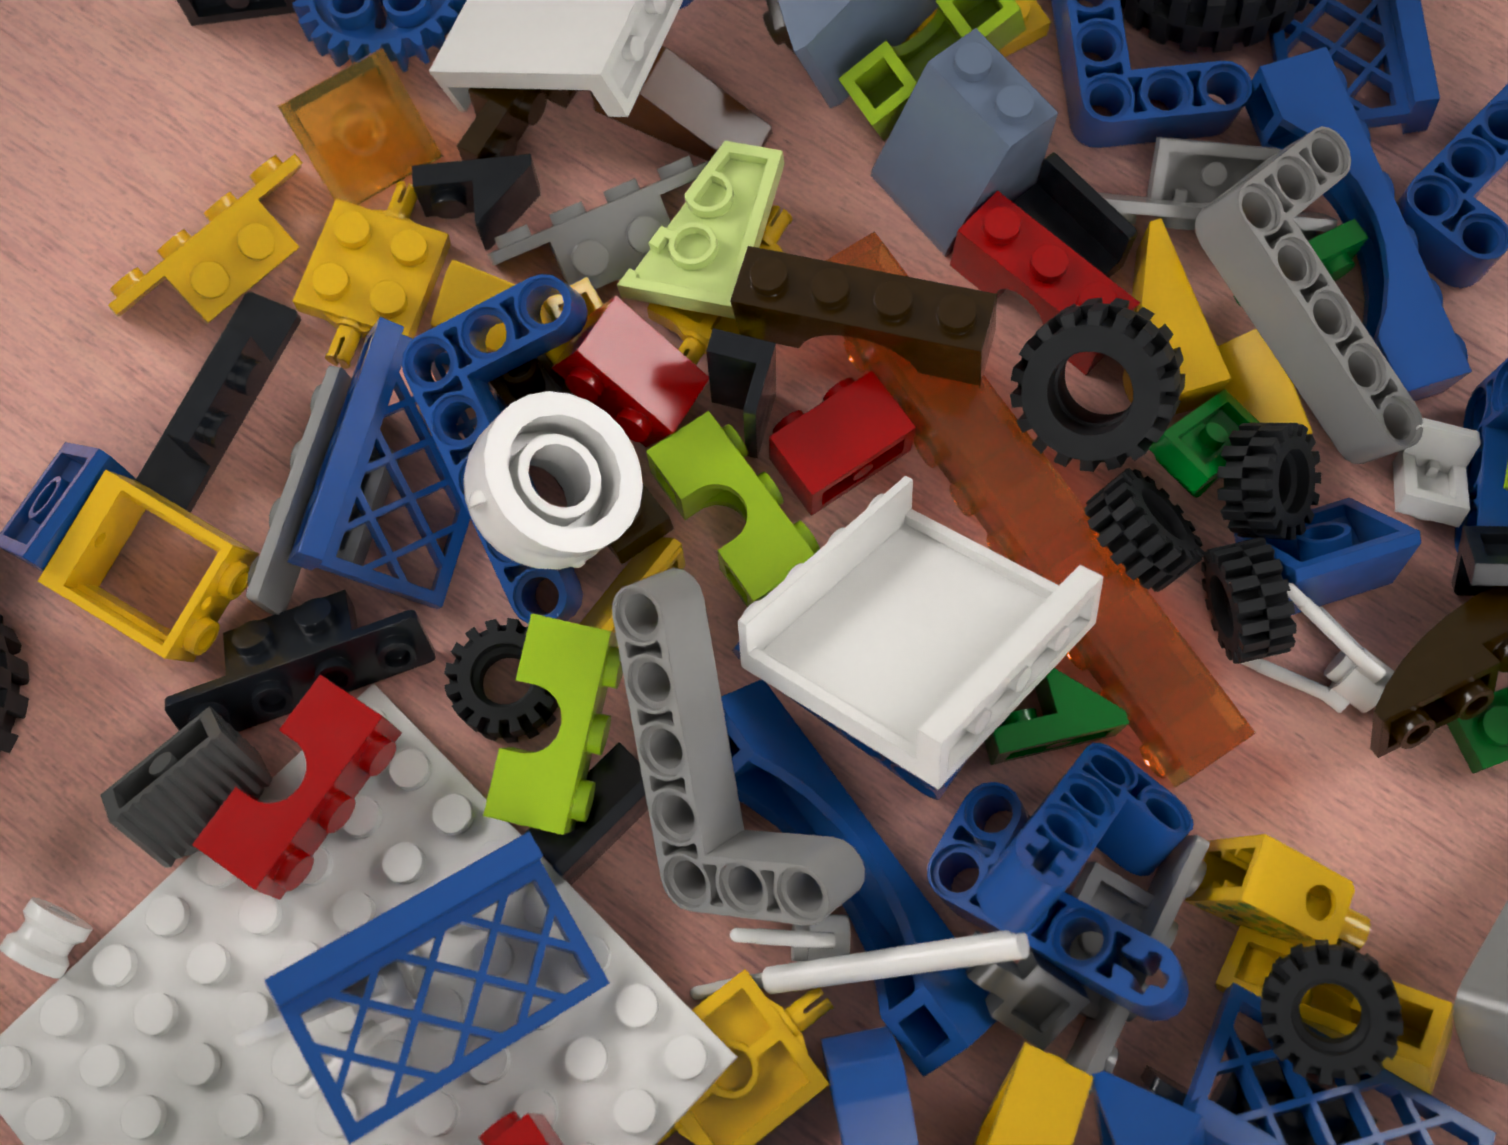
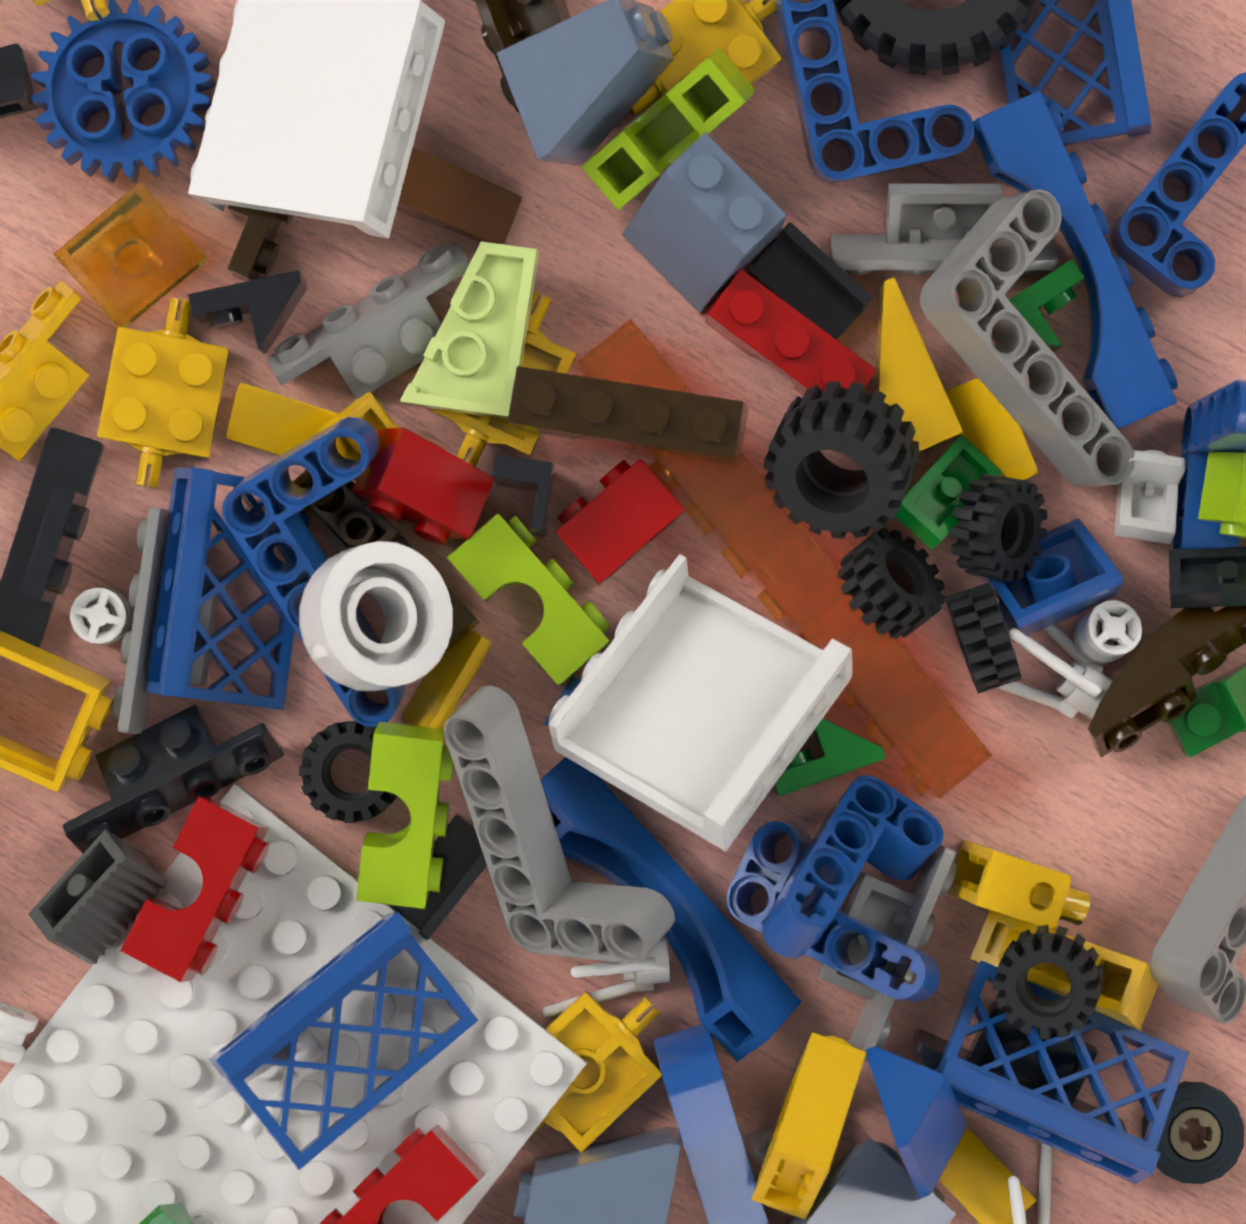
camera: 10 degrees left, 15 degrees up
(251, 472) = (91, 613): none -> white wheel
(896, 962) = (702, 981): white bar -> none
(1030, 996) = (810, 993): dark grey plate -> none
(1388, 615) = (1118, 624): none -> white wheel

